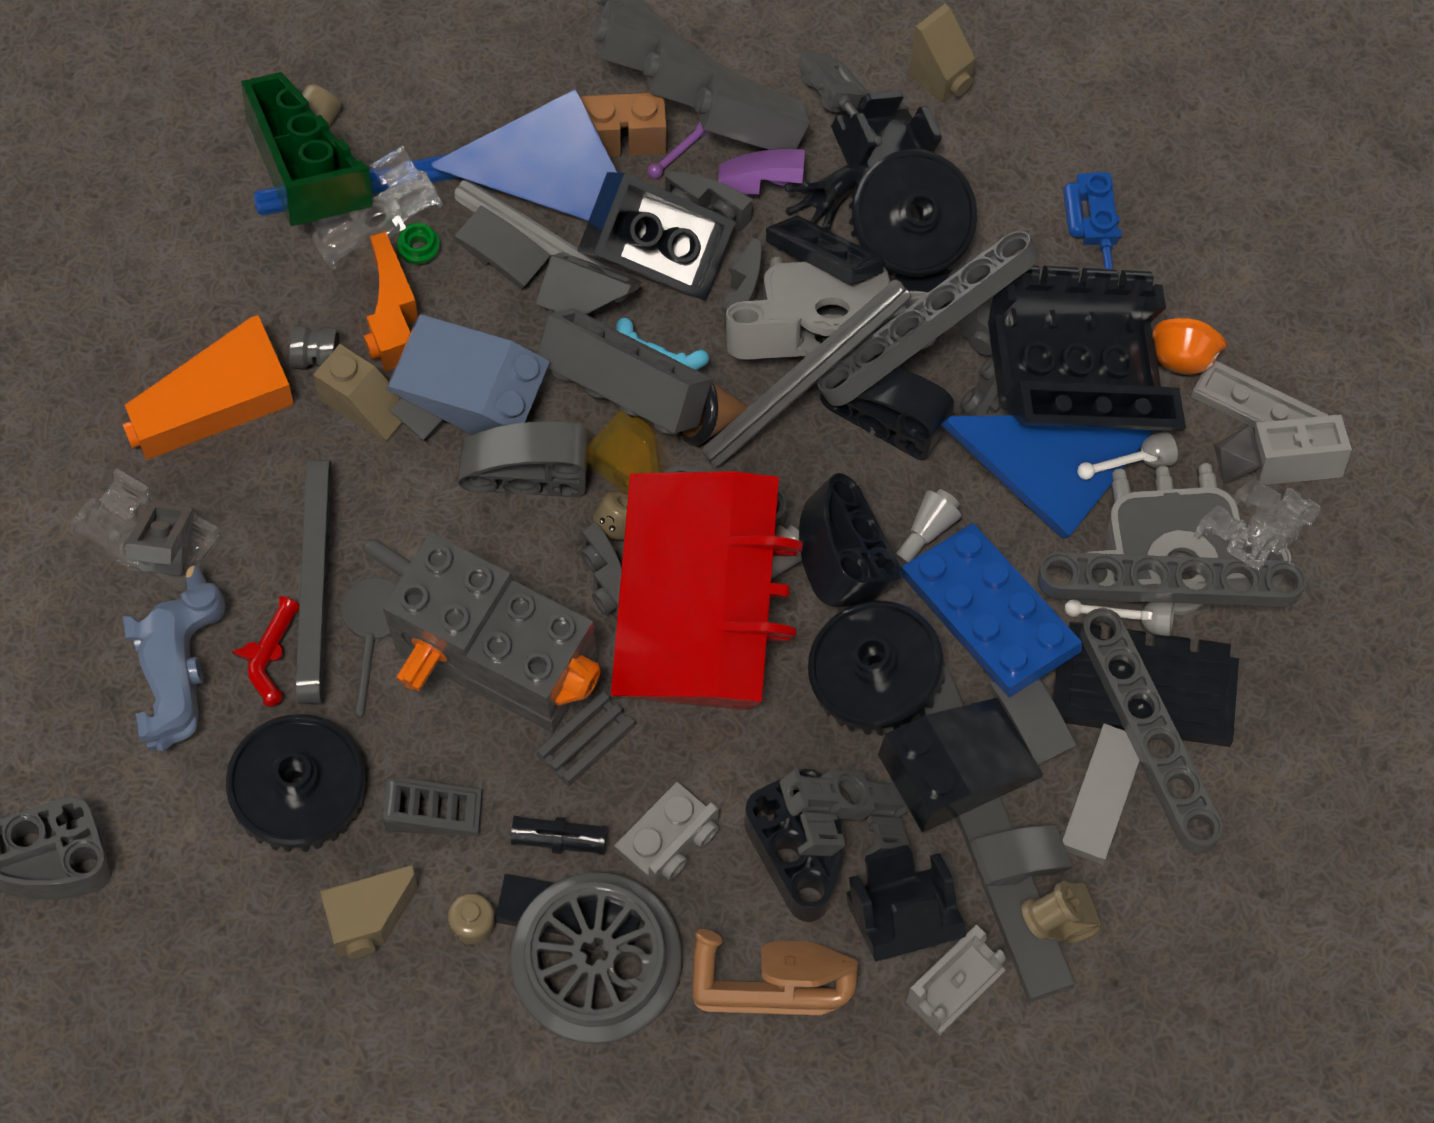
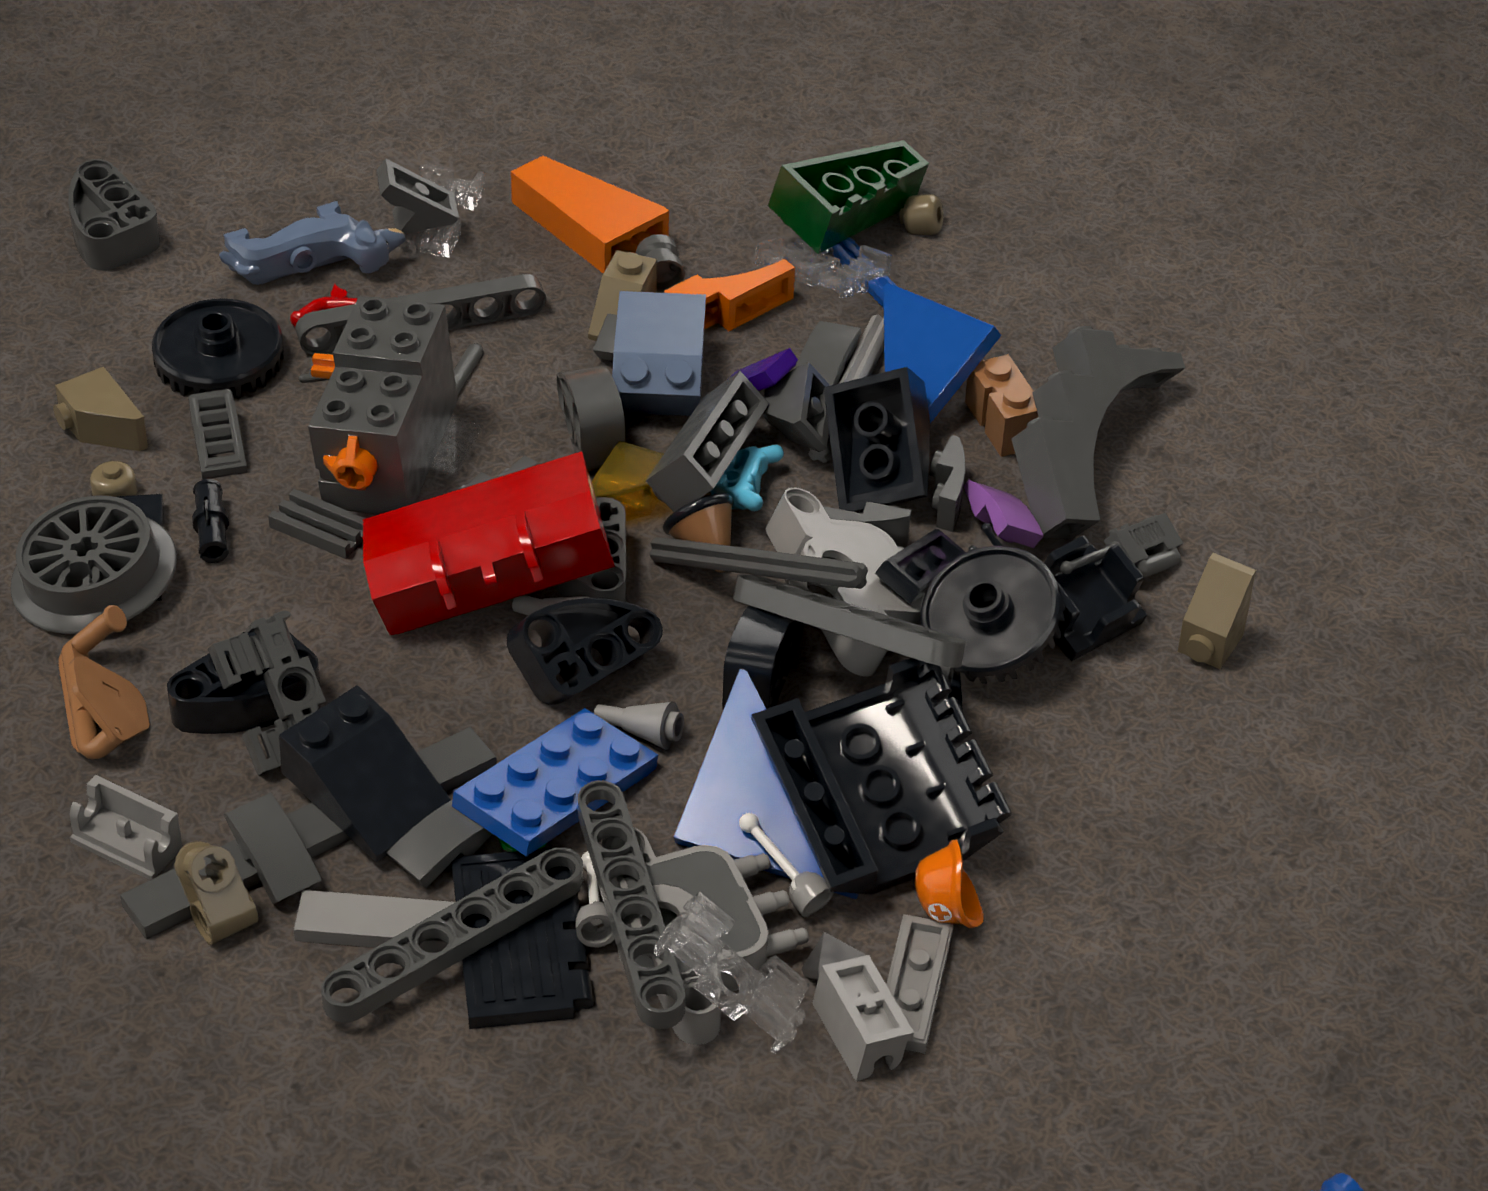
camera: 75 degrees right, 20 degrees down
(418, 233) = (806, 306): green plate -> none
(528, 307) = (769, 370): none -> dark purple tile
(655, 170) = (974, 450): medium lavender hinge -> none
(667, 834) = (230, 594): light grey bracket -> none
(879, 693) = (458, 700): black wheel -> none
(904, 908) = (185, 766): black panel -> none
(1102, 221) = (1094, 796): blue piece -> none

